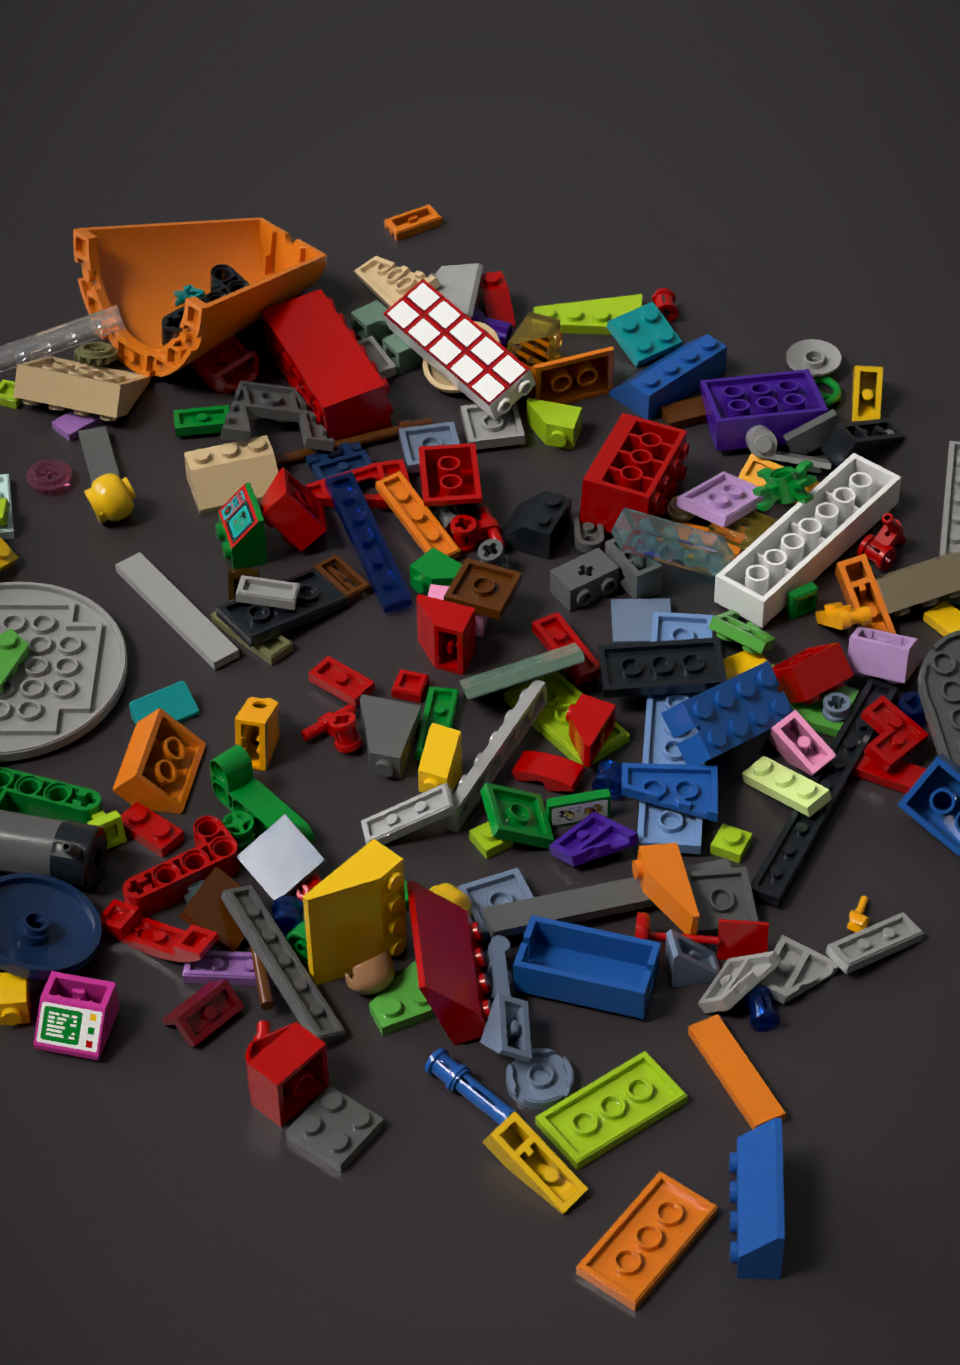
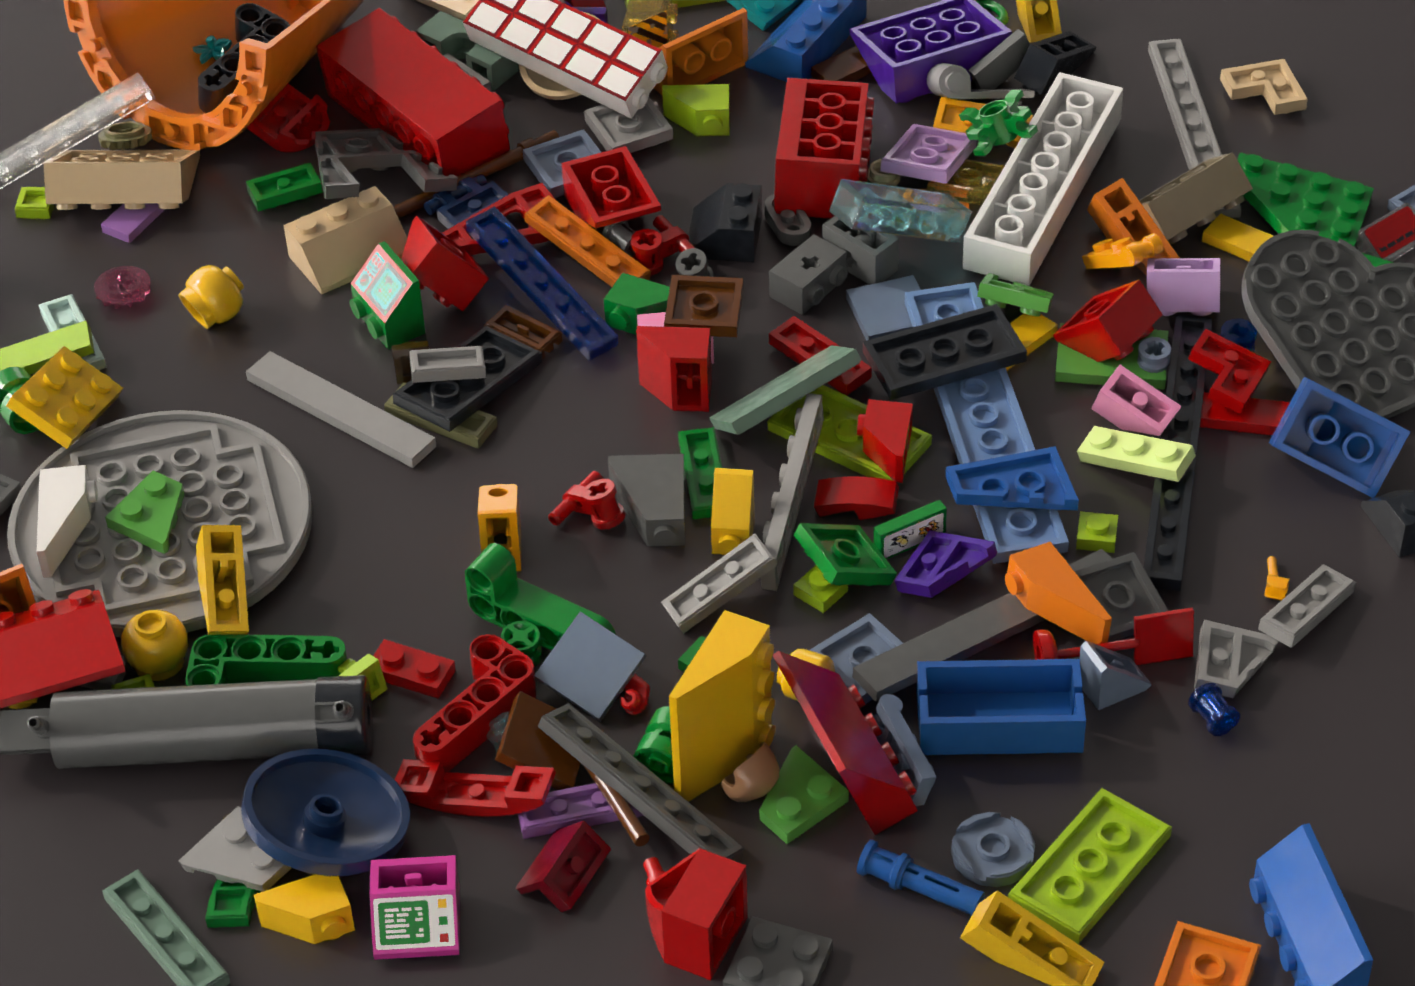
camera: 15 degrees left, 0 degrees up
(27, 727) = (222, 579): none -> yellow slope
(97, 452) = (171, 250): dark grey tile -> none
(159, 764) = (394, 589): orange slope -> none
(174, 700) = (371, 525): teal slope -> none
(287, 913) = (622, 726): clear blue wheel -> none
(341, 681) = (572, 447): red plate -> none
(410, 686) = (653, 436): red tile -> none
(508, 1028) = (941, 798): sand blue slope -> none
(609, 776) = (932, 486): clear blue wheel -> none
(728, 714) = (1049, 382): blue piece -> none
(735, 1071) = (1215, 789): orange tile -> none
(736, 980) = (1175, 681): light grey wing -> none
(801, 600) = (1063, 246): green tile -> none
(881, 547) = (1125, 166): red piece -> none

